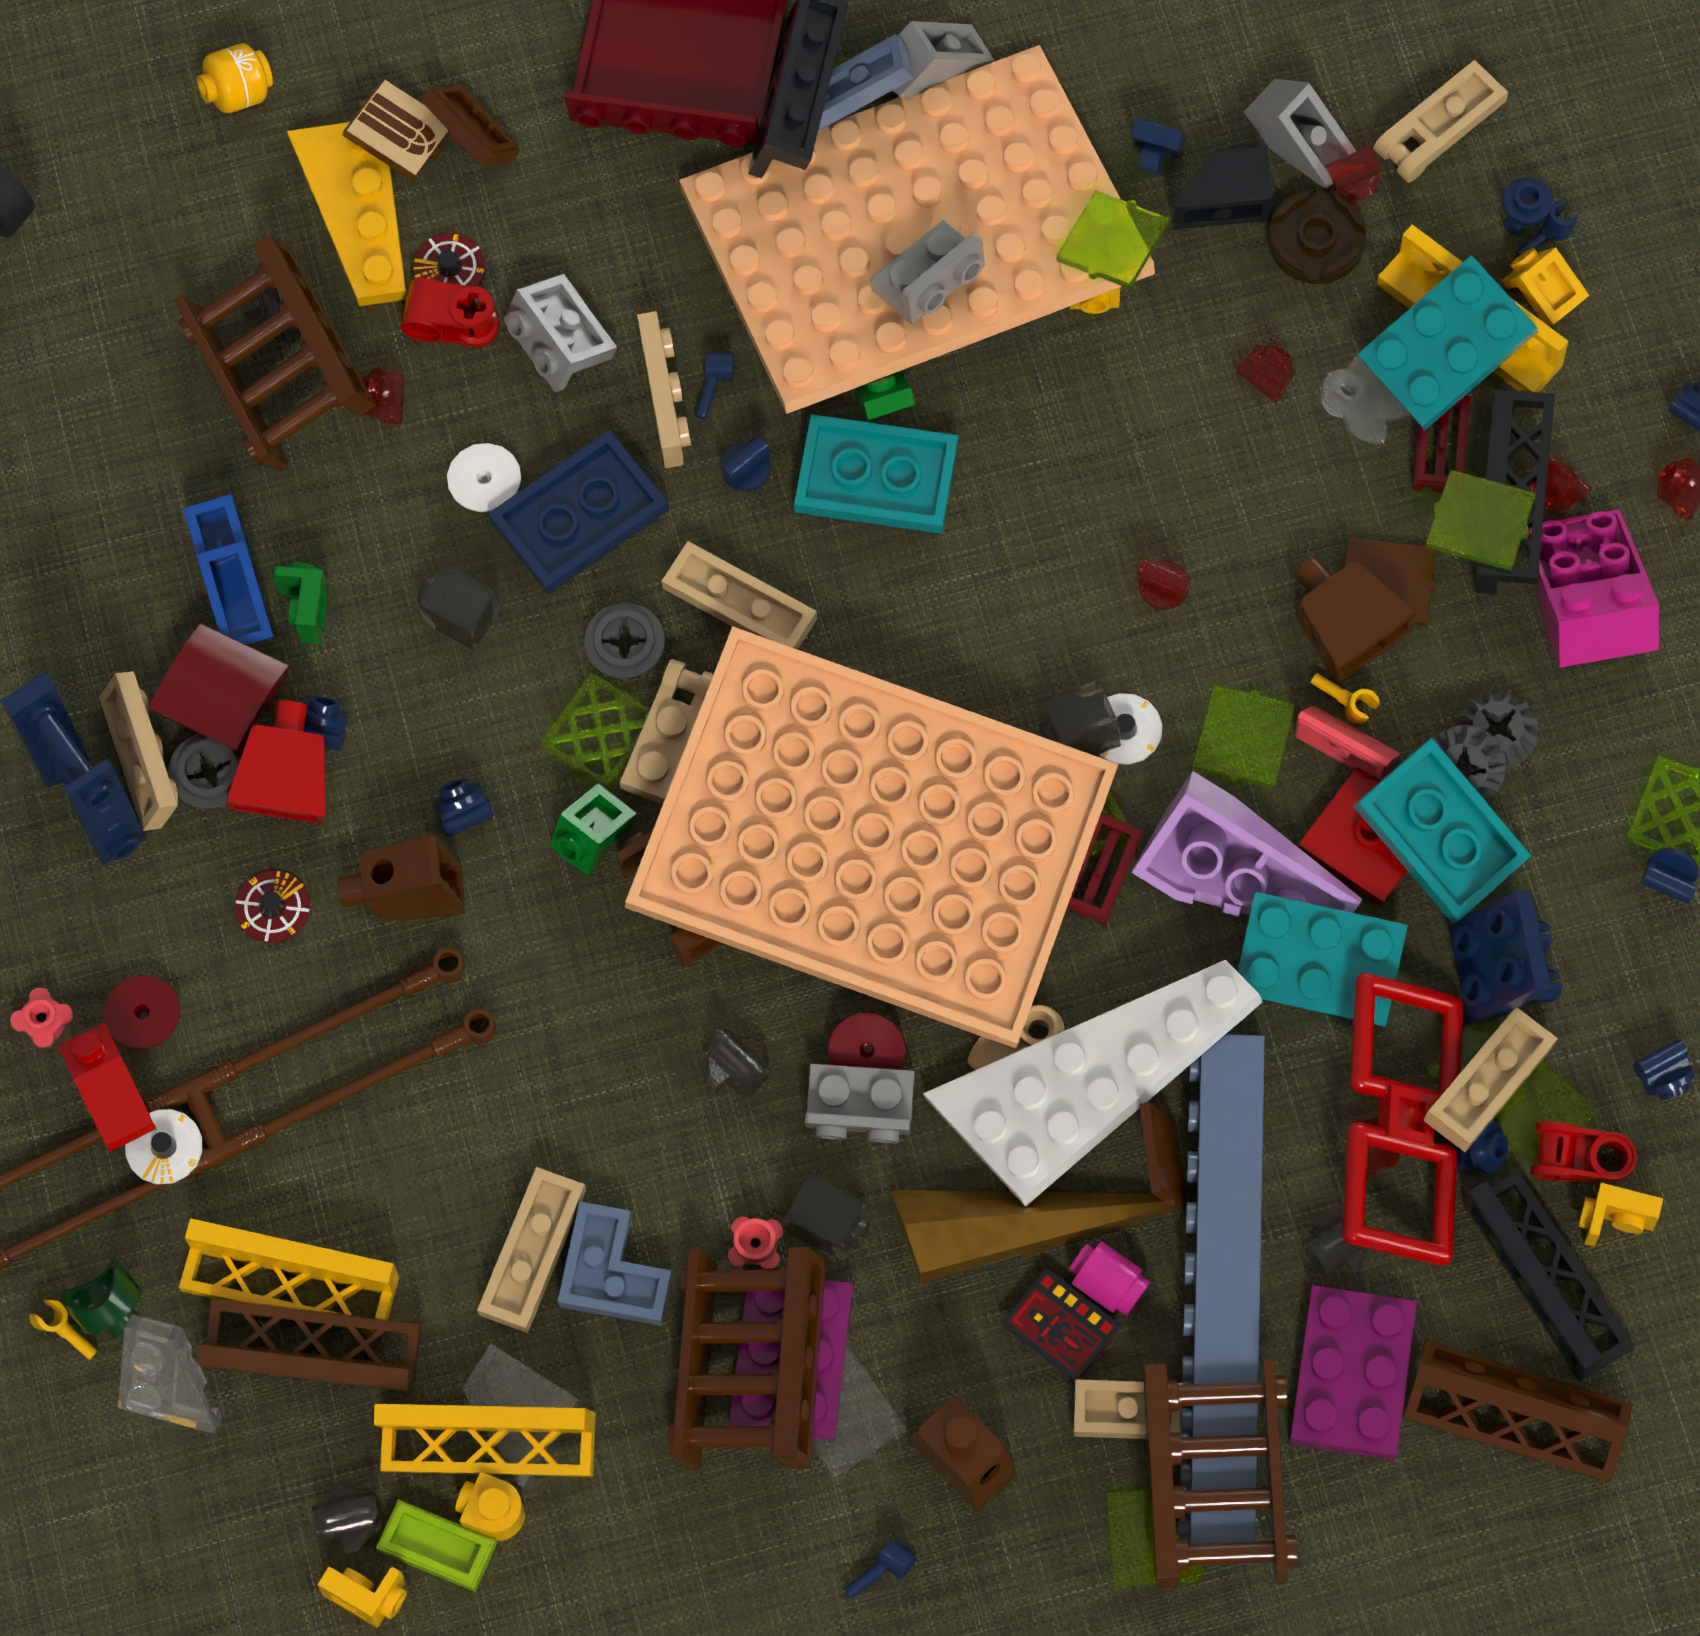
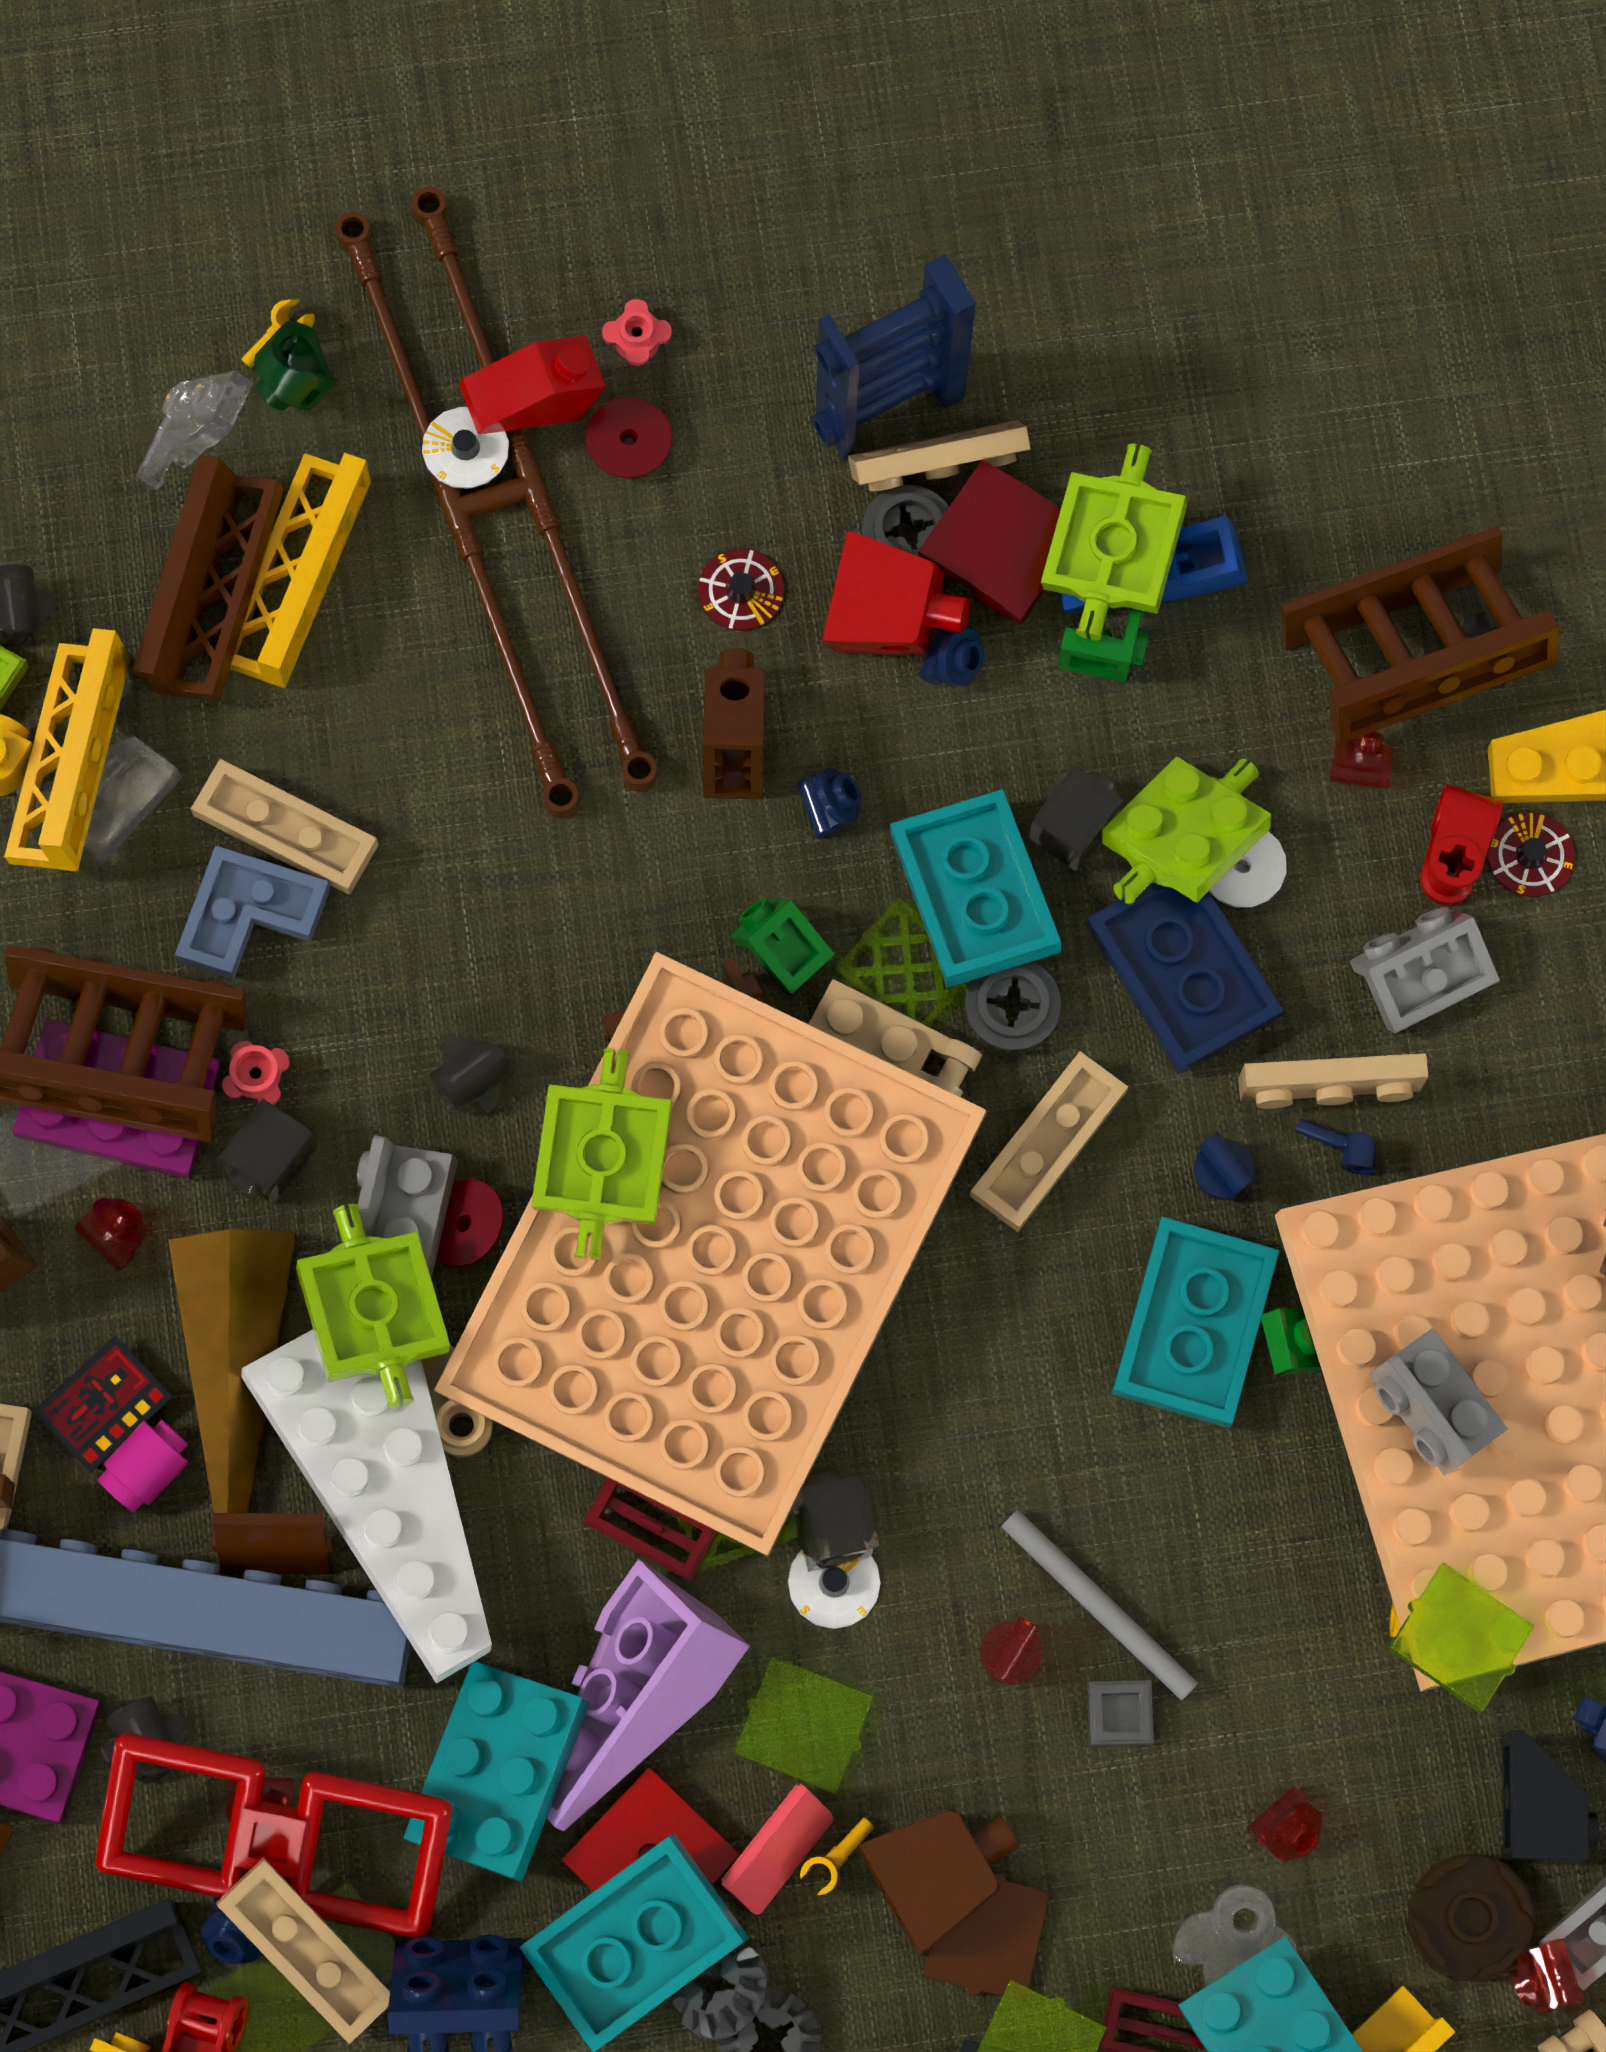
camera: 90 degrees right, 5 degrees up
(218, 588) = (1114, 542): none -> lime plate
(462, 517) = (1186, 830): none -> lime plate
(529, 677) = (975, 888): none -> teal plate
(807, 919) = (602, 1154): none -> lime plate
(909, 1339) = (113, 1230): none -> clear red plate
(956, 1096) = (372, 1306): none -> lime plate
(1114, 525) = (1099, 1605): none -> light grey bar
(1198, 501) = (1120, 1713): none -> flat silver tile

